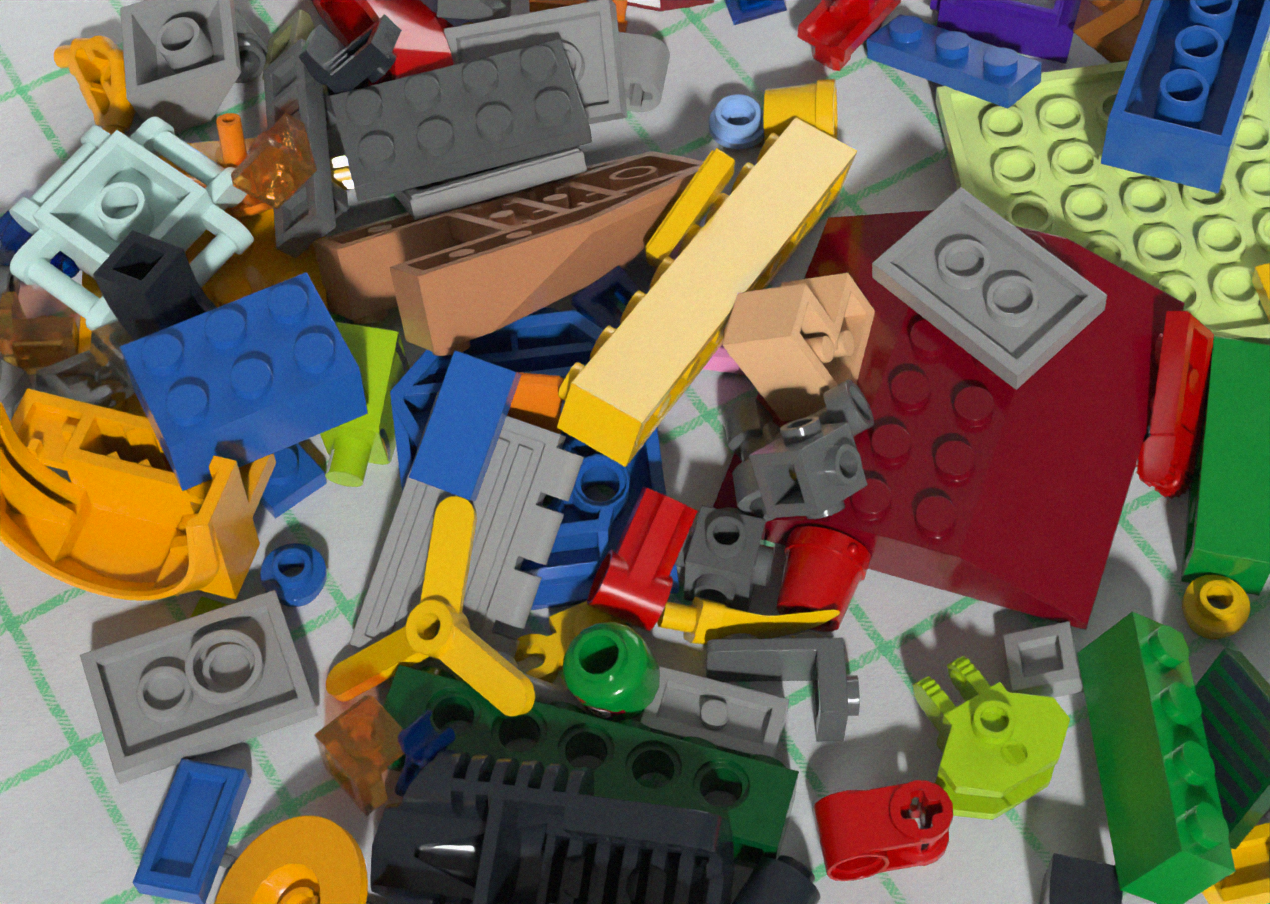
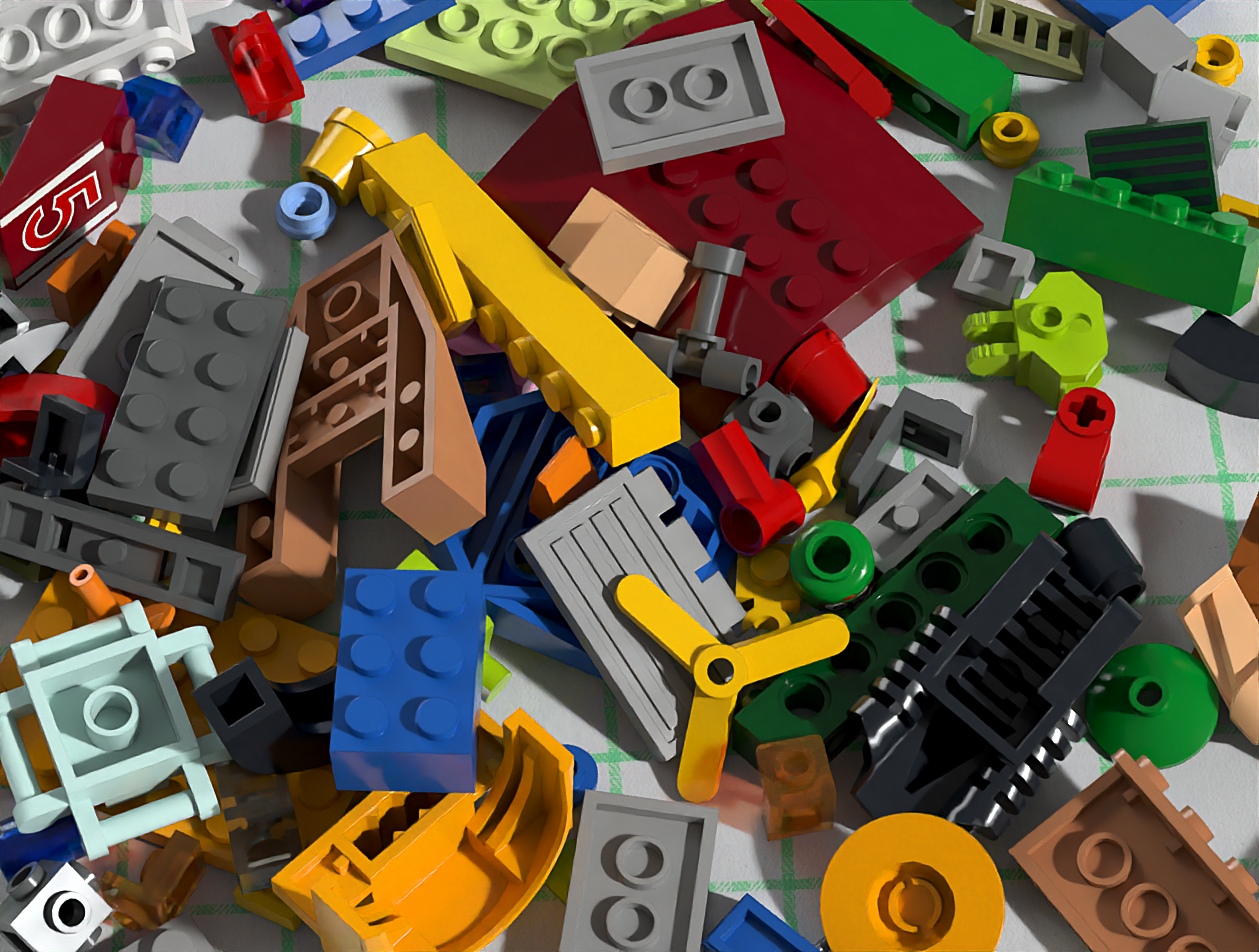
camera: 60 degrees left, 0 degrees up
(211, 639) = (647, 829): light grey piece -> none
(276, 163) = (141, 565): clear orange bracket -> none
(420, 746) = (832, 730): clear blue hand -> none
(465, 426) = (572, 531): blue tile -> none
(808, 469) = (766, 312): dark grey brick -> none

